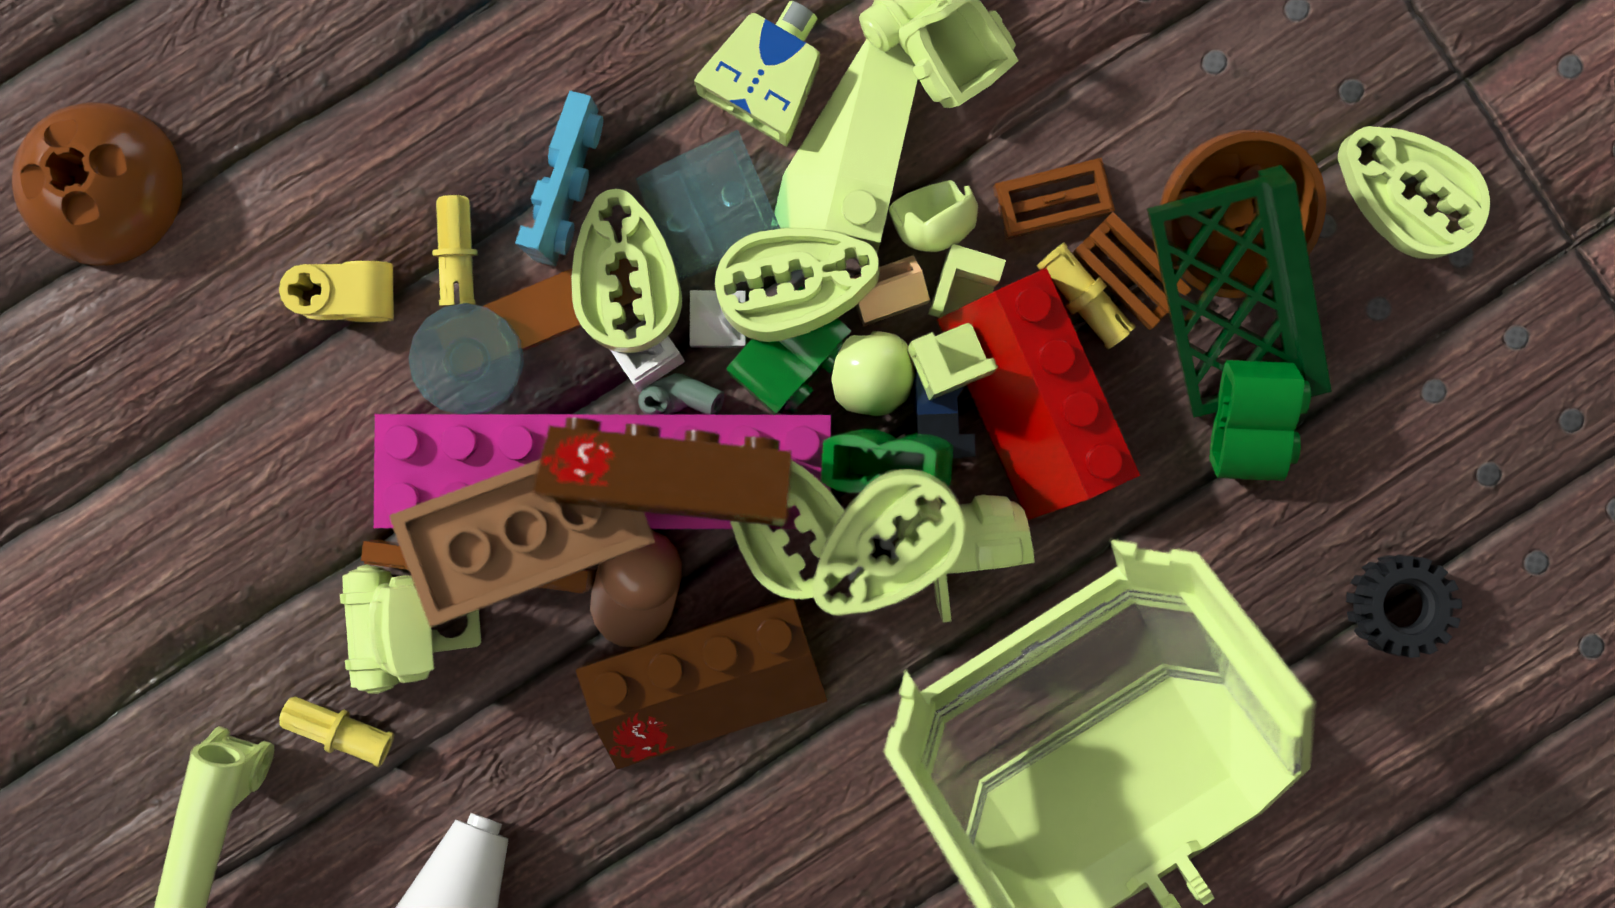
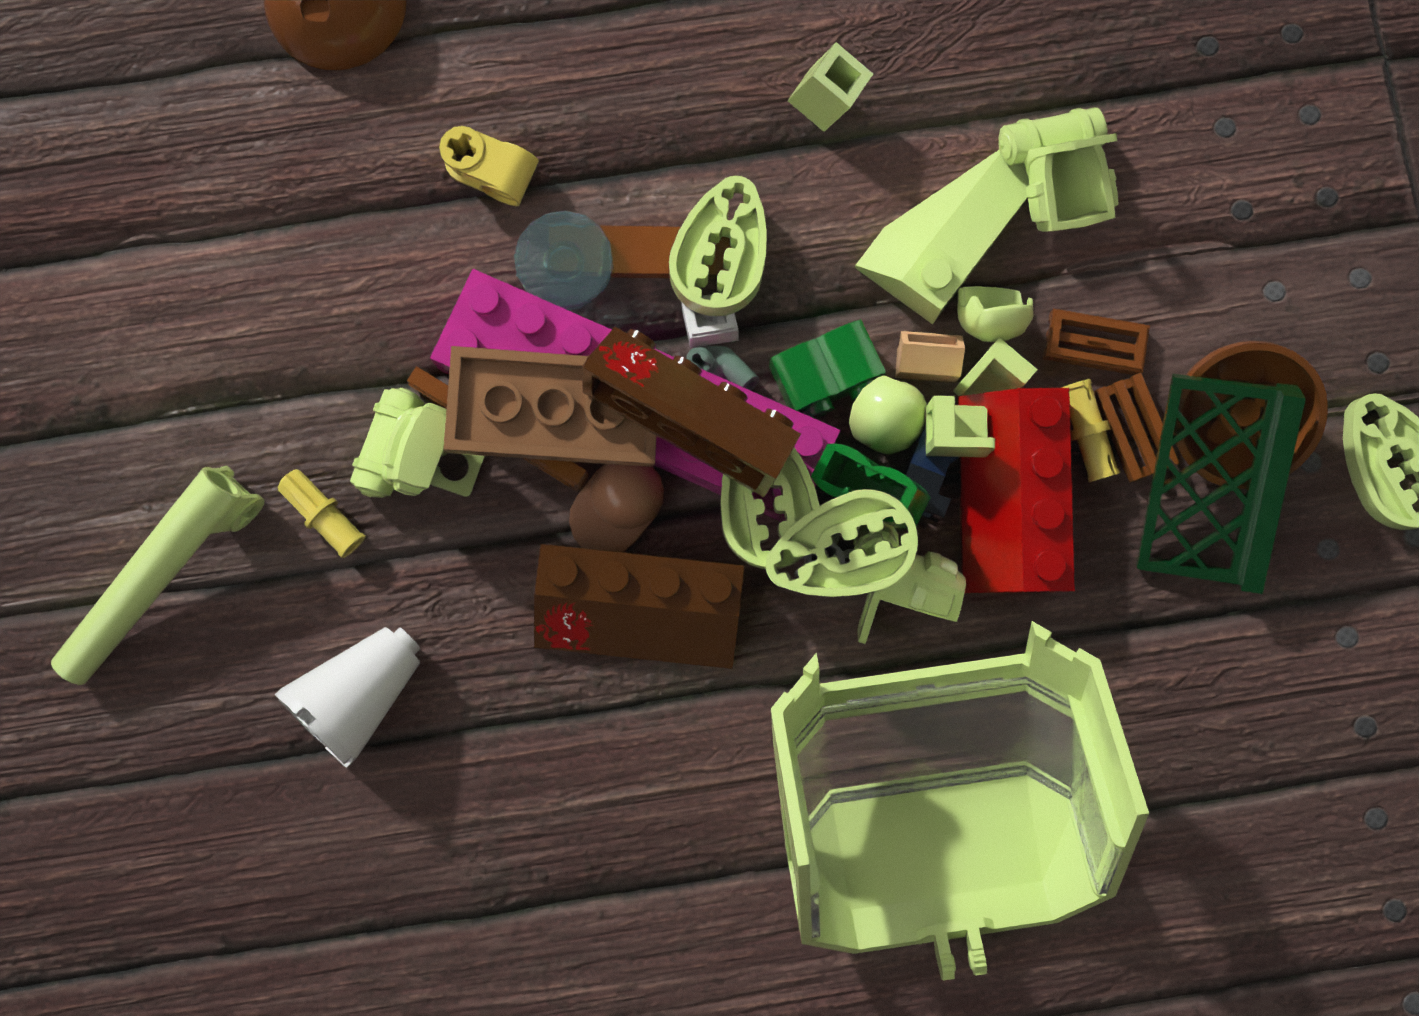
camera: 20 degrees right, 5 degrees down
(454, 249) = (594, 170): light yellow axle -> none
(554, 196) = (694, 161): medium azure wing -> none
(662, 52) = (830, 87): none -> yellowish green brick
(706, 202) = (814, 224): clear light blue slope -> none
(708, 323) = (780, 318): white tile -> none
(764, 72) = (904, 139): yellowish green torso -> none
(777, 254) = (843, 333): yellowish green piece -> none
(1258, 419) = (1190, 591): green brick -> none
(1435, 613) = (1279, 802): black tyre -> none

